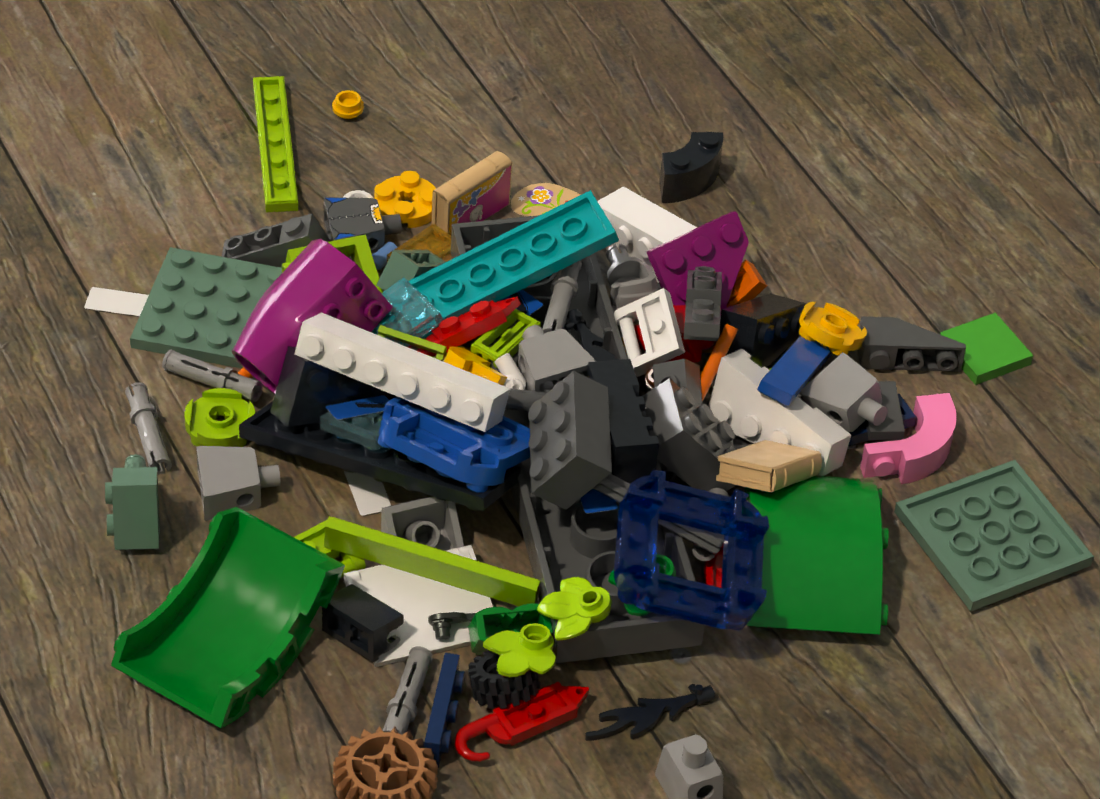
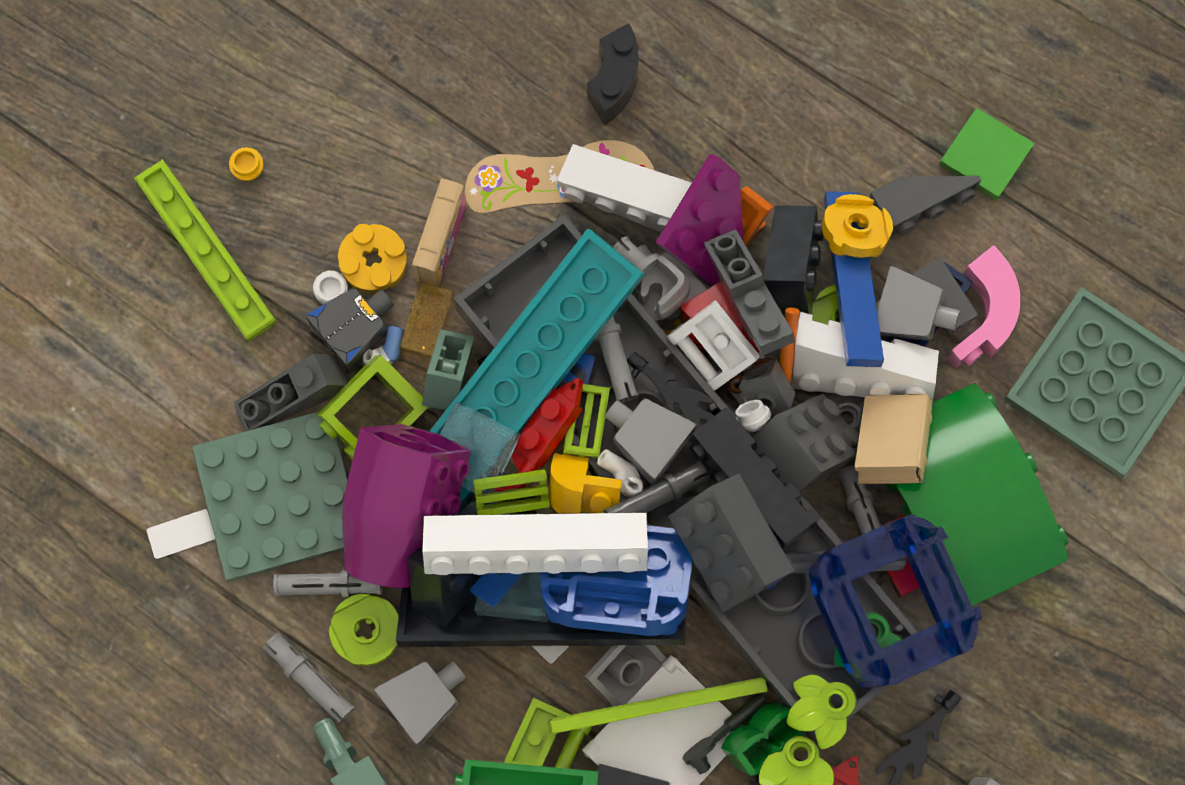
camera: 25 degrees left, 30 degrees up
(649, 380) = (753, 415): none -> white plate

